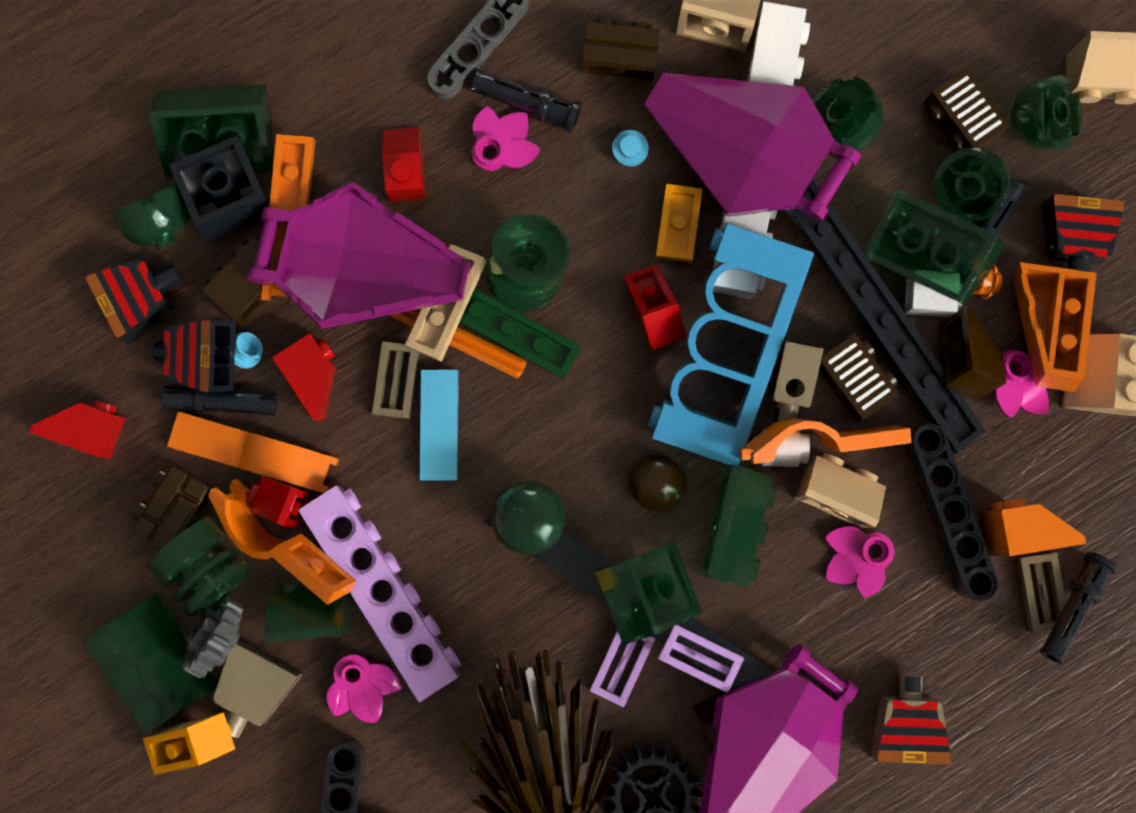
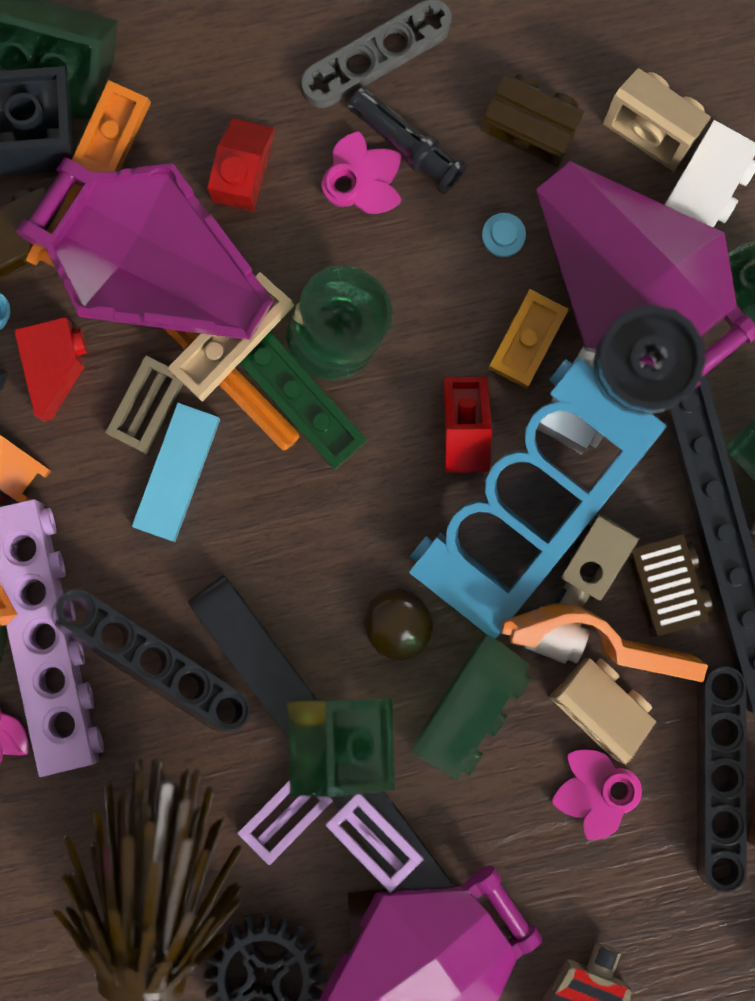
camera: 20 degrees right, 0 degrees up
(492, 576) = (172, 668): none -> black beam
(528, 517) = (236, 612): clear green cylinder -> none
(800, 190) = (676, 355): none -> black wheel

